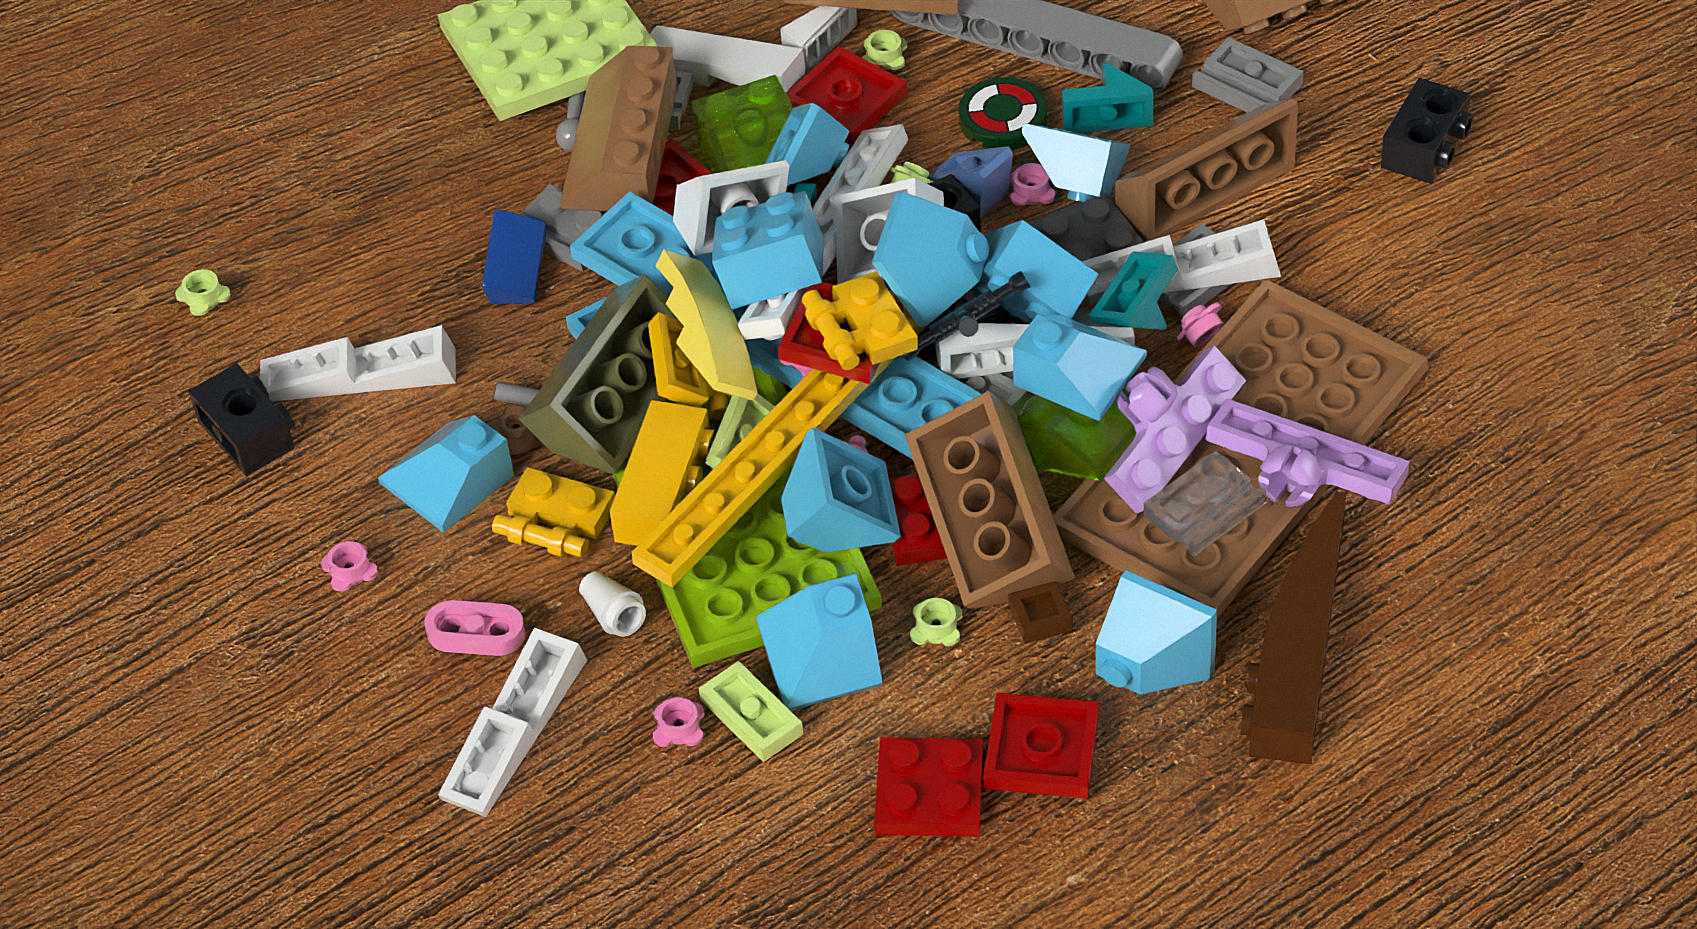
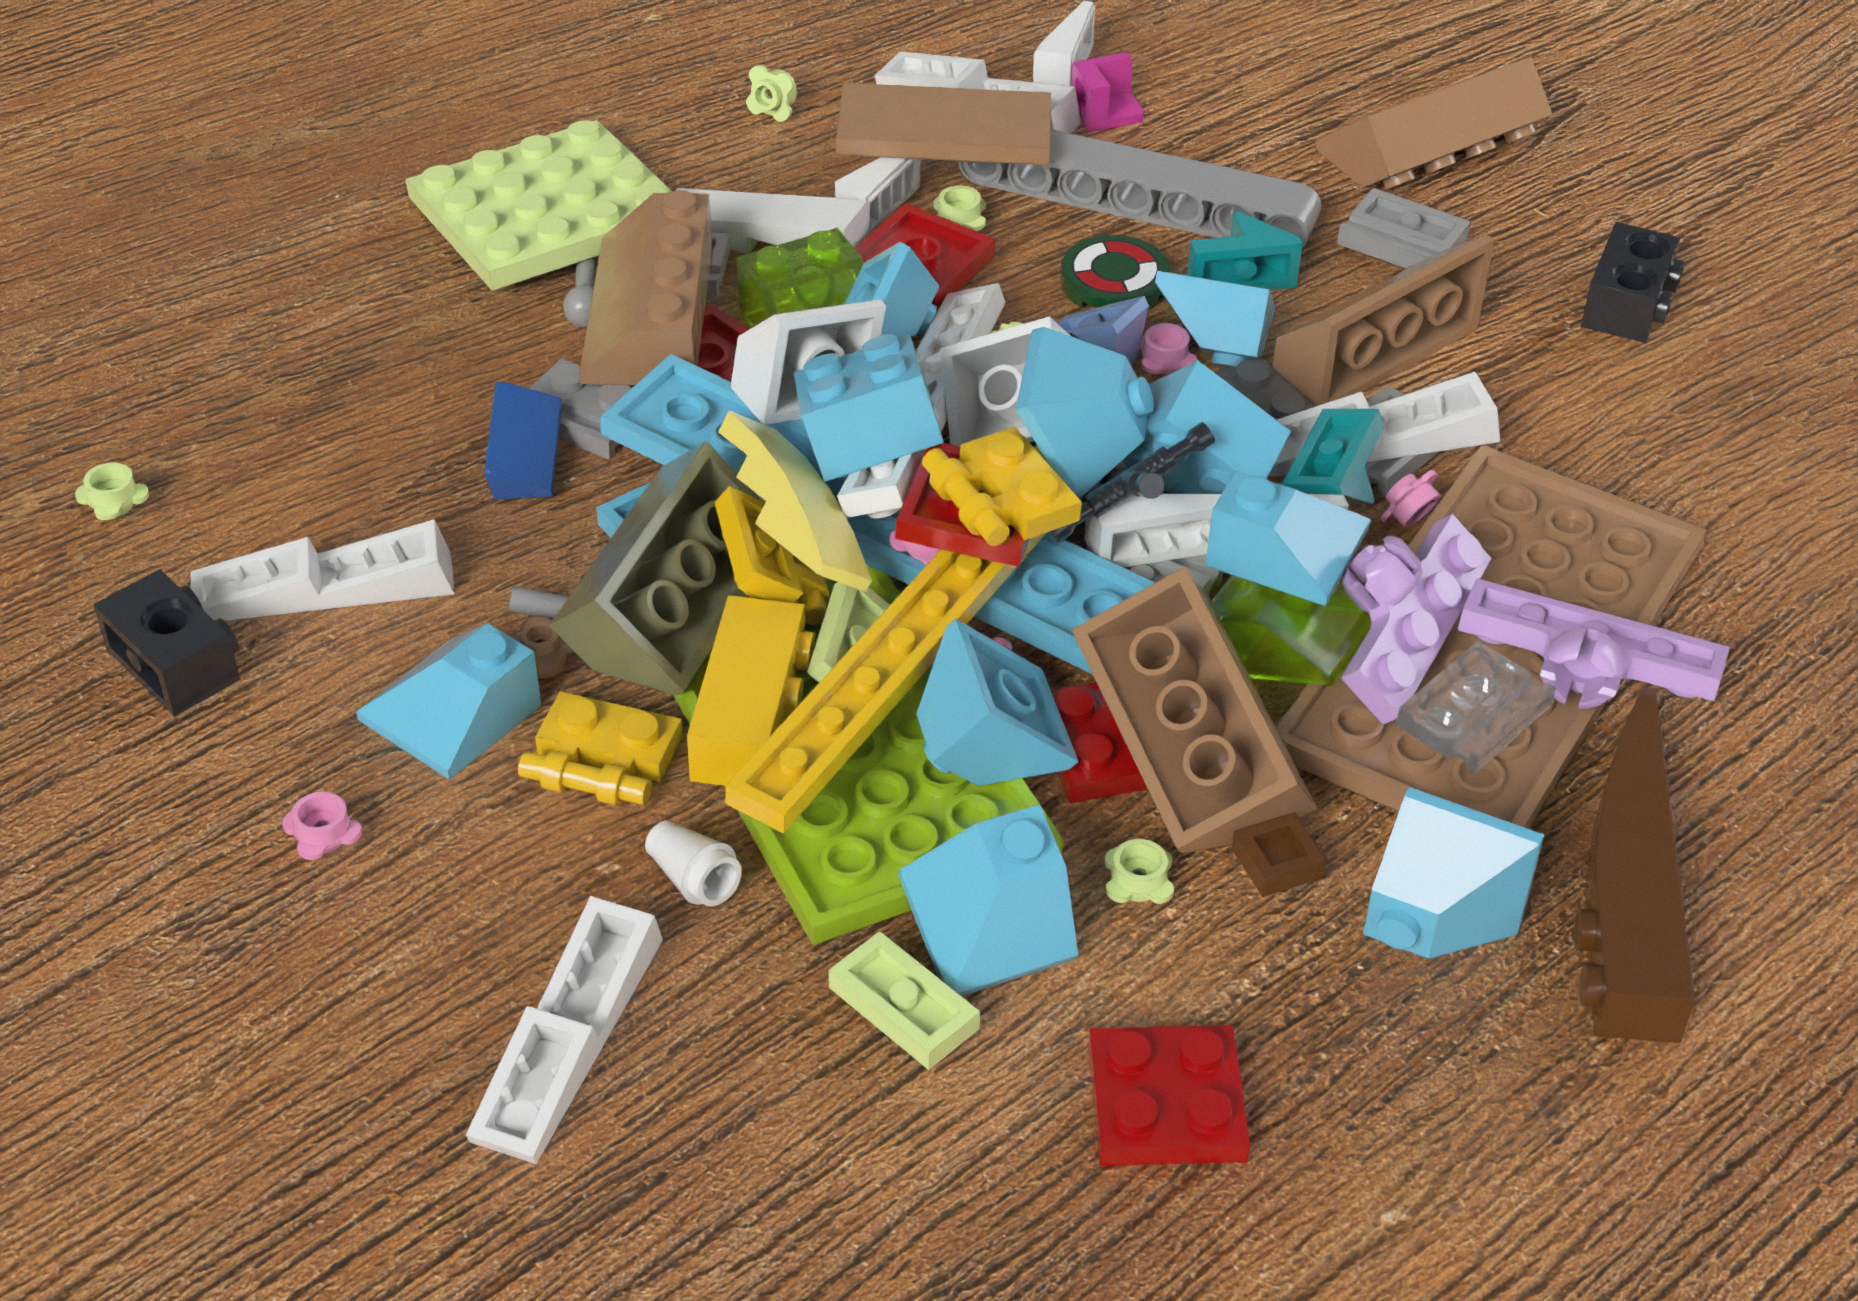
camera: 10 degrees left, 5 degrees down
(476, 627) = (504, 901): bright pink plate -> none
(674, 712) = (797, 1005): bright pink plate -> none
(1041, 745) = (1316, 1031): red plate -> none

